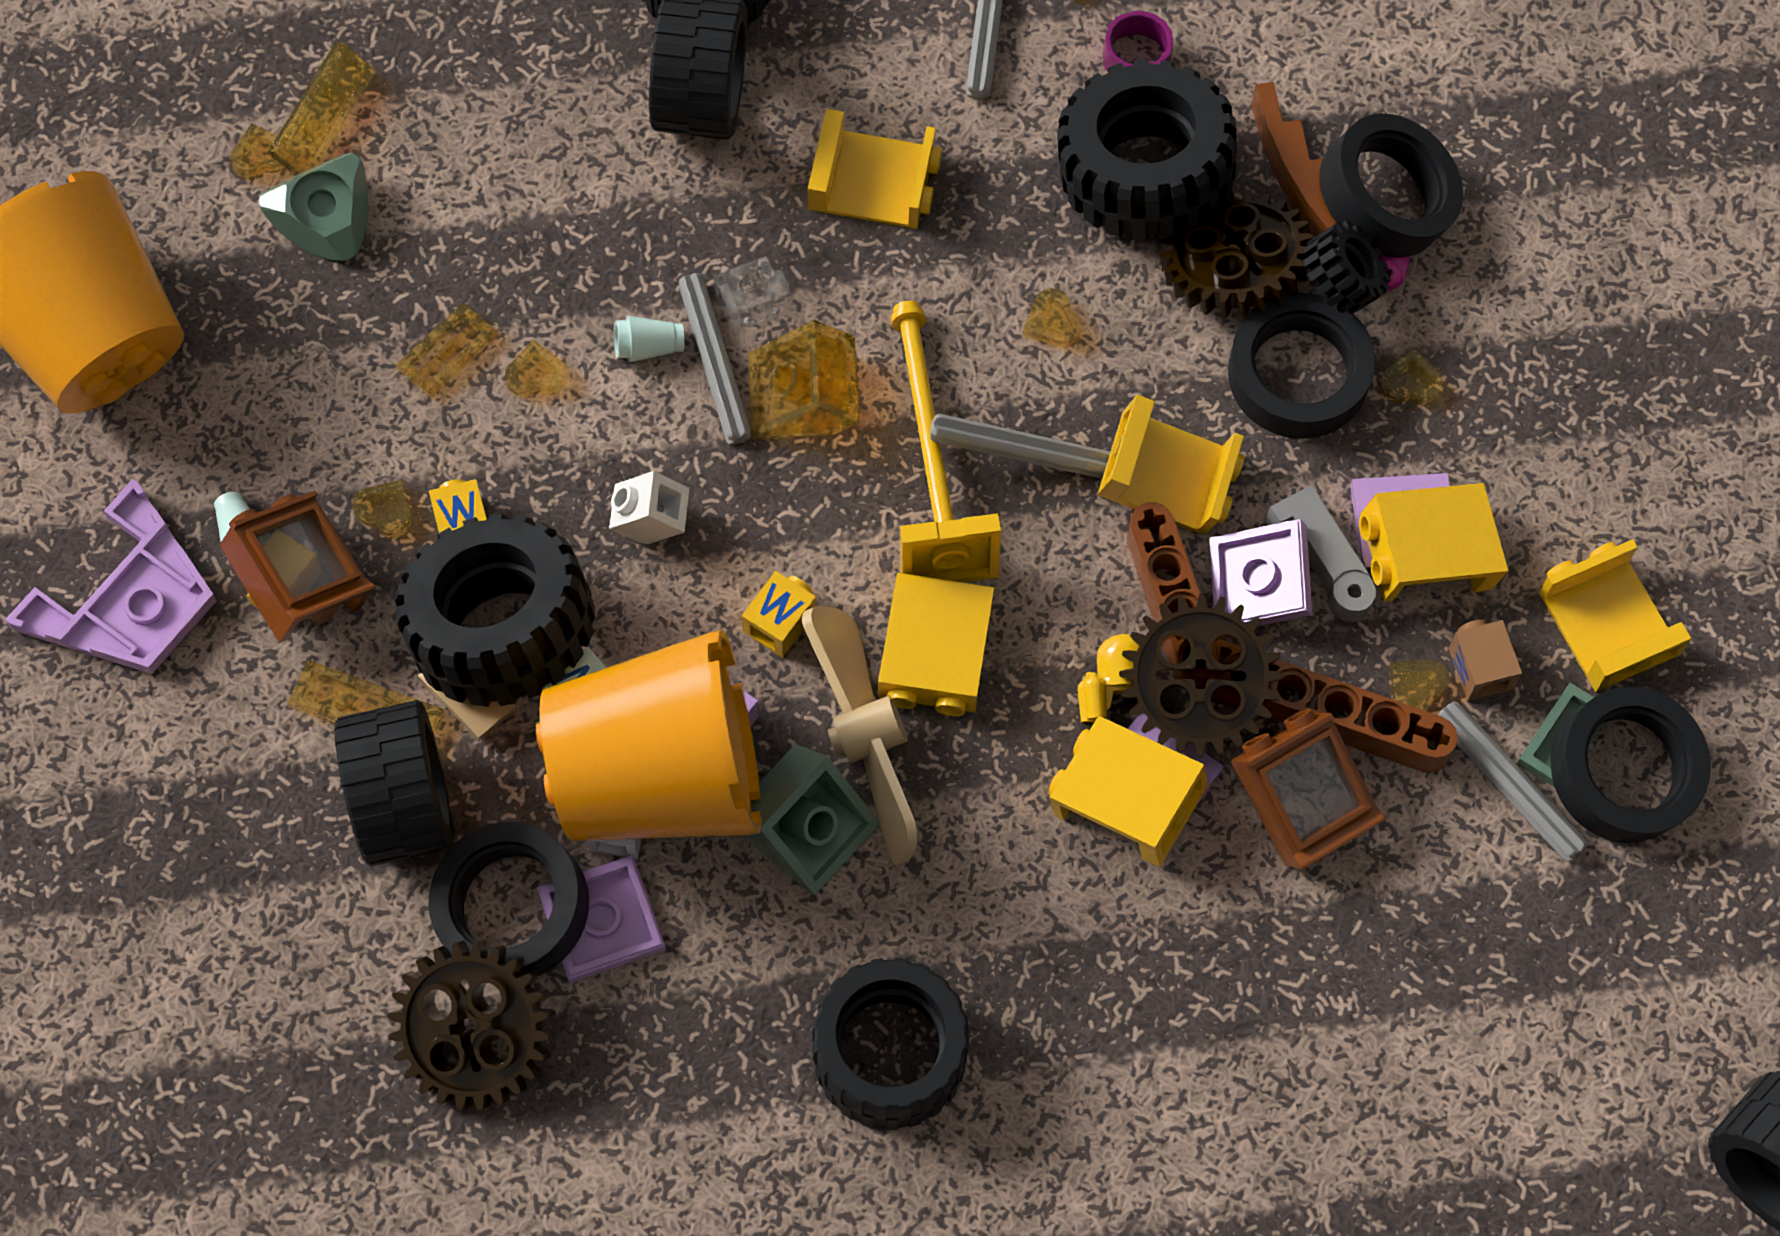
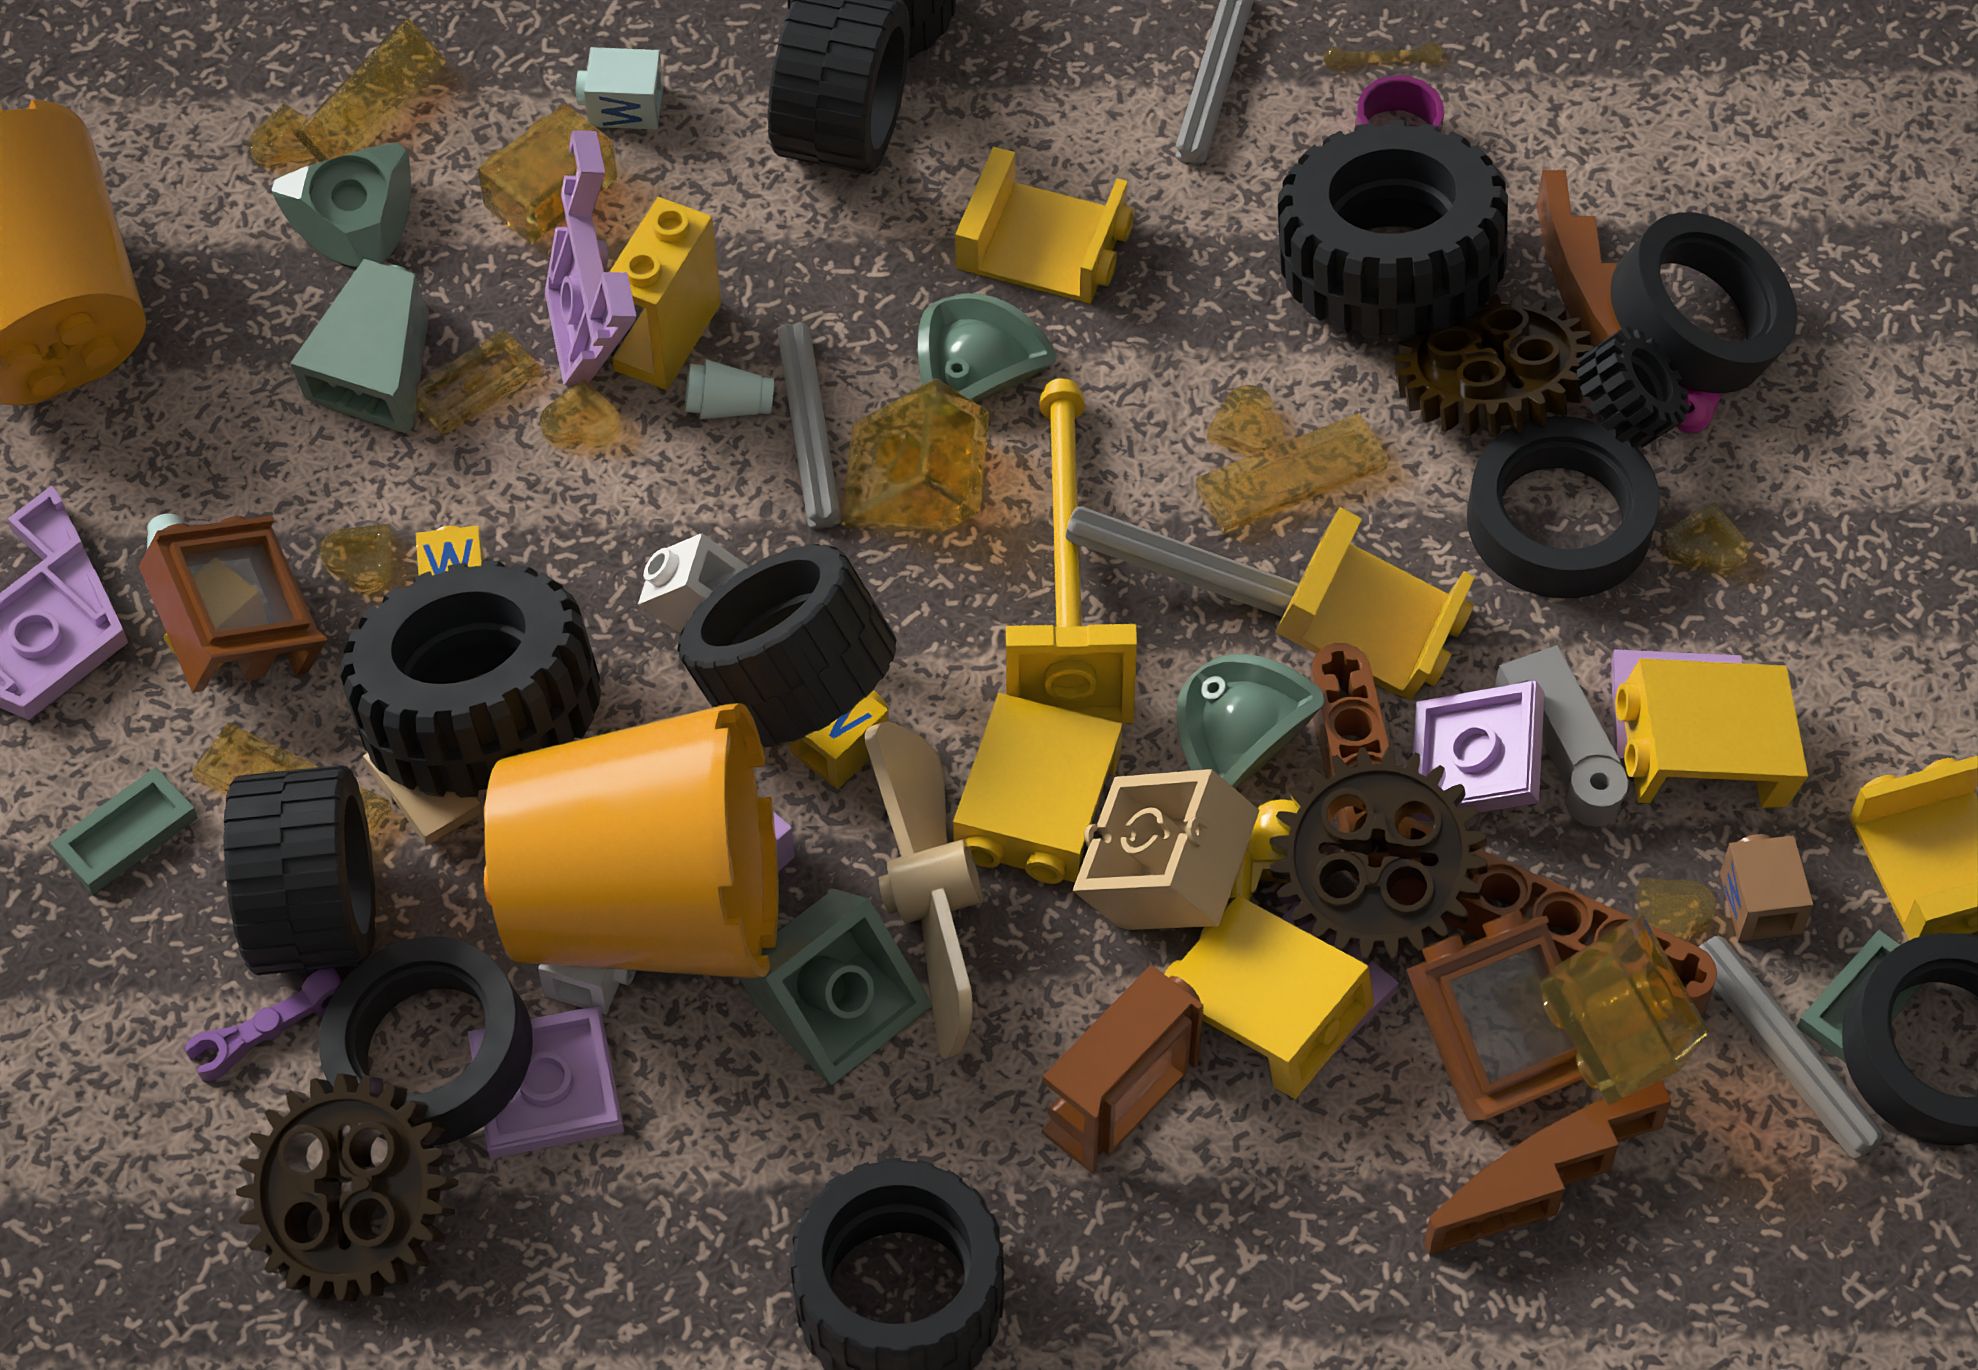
camera: 10 degrees right, 10 degrees down
(244, 756) = (124, 830): none -> sand green tile
(361, 333) = (368, 348): none -> sand green slope
(418, 872) = (265, 1025): none -> medium lavender piece
(475, 165) = (527, 176): none -> clear yellow brick
(521, 83) = (621, 88): none -> light aqua brick
(530, 293) = (585, 303): none -> lavender wing
(589, 264) = (677, 284): none -> yellow panel
(734, 556) = (789, 642): none -> black tyre
(745, 311) = (846, 347): clear brick -> none
(836, 278) = (980, 345): none -> sand green hat
(1033, 861) = (1123, 1066): none -> dark orange window
(1041, 687) = (1166, 850): none -> tan brick
(1079, 567) = (1242, 714): none -> sand green hat
(1091, 358) = (1291, 473): none -> clear yellow tile
(1338, 909) = (1532, 1176): none -> dark orange slope
(1396, 779) = (1624, 1011): none -> clear yellow slope

